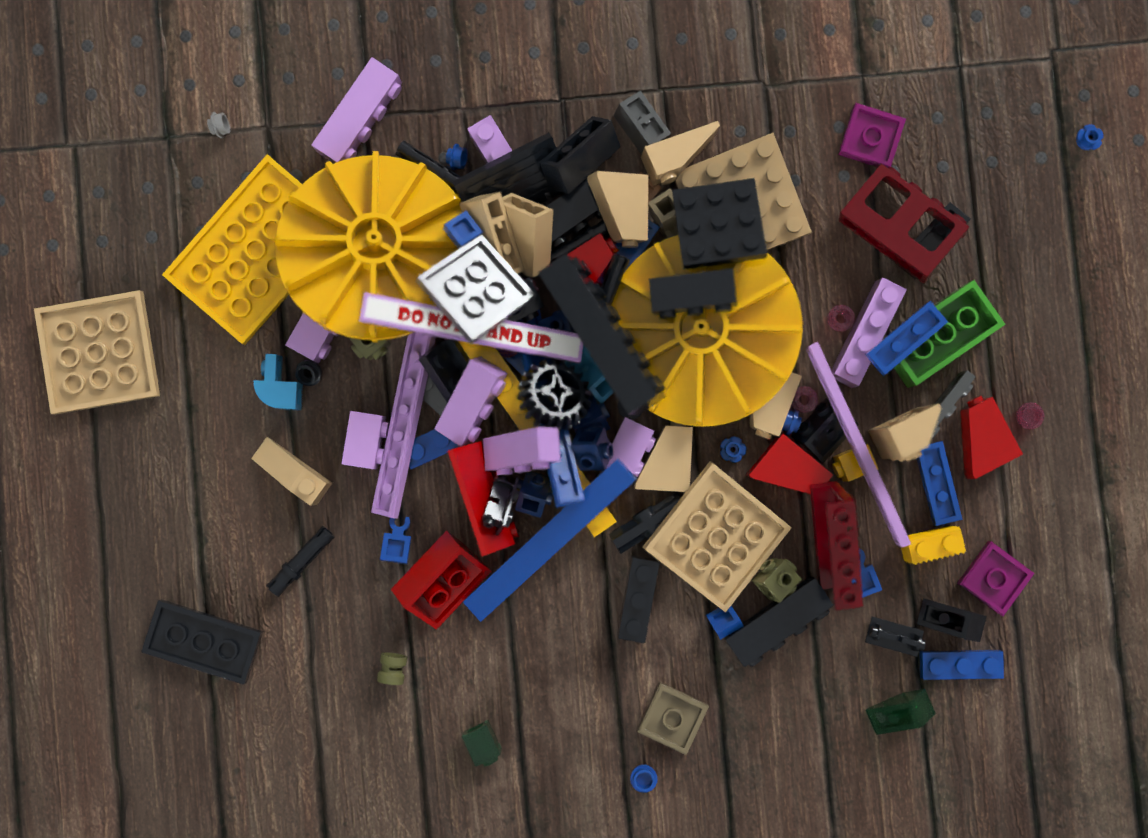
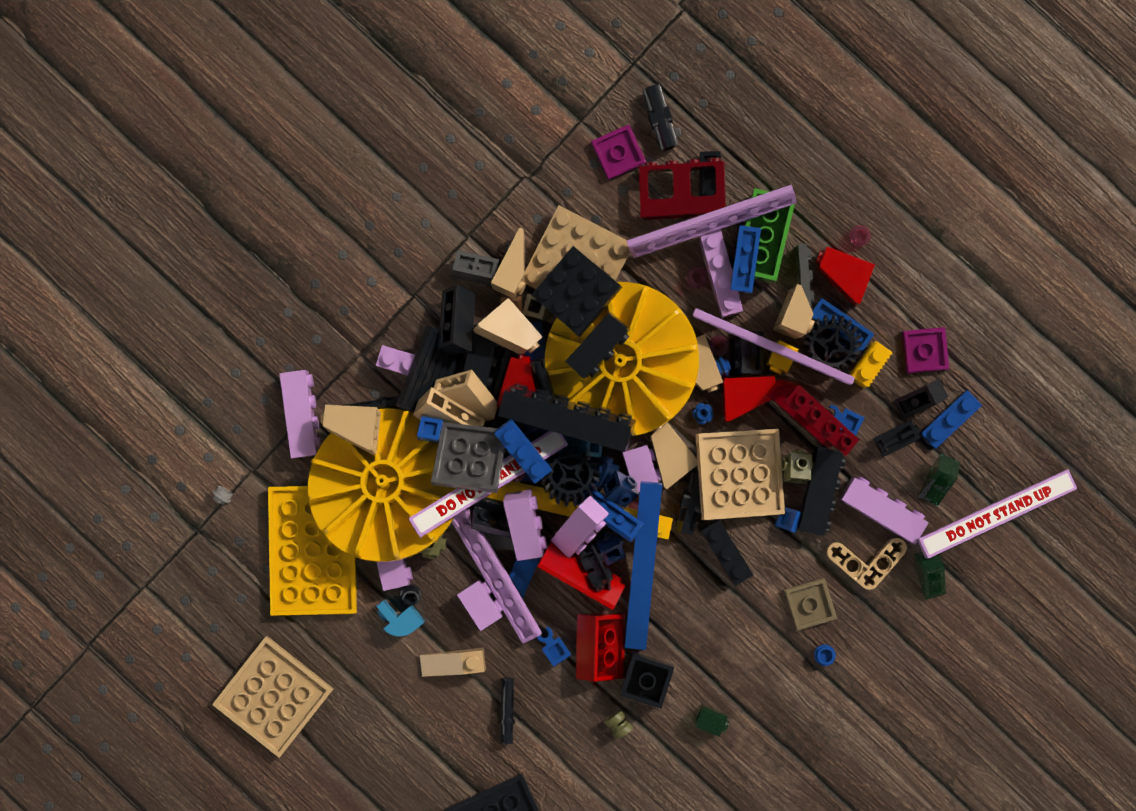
camera: 40 degrees left, 0 degrees up
(396, 162) = (353, 424): none -> tan slope
(455, 651) = (646, 680): none -> black brick
(456, 157) = (382, 386): blue plate -> none
(531, 327) = (522, 450): none -> blue plate
(753, 732) = (863, 569): none -> tan beam
(813, 793) = (931, 575): none -> clear green slope
(822, 694) = (884, 510): none -> lavender brick
(907, 275) = (712, 221): none -> lavender tile
(921, 502) = (839, 345): none -> black gear
(926, 793) = (996, 514): none -> tile
(940, 138) = (660, 117): none -> black piece
(1084, 142) = (748, 43): blue plate -> none

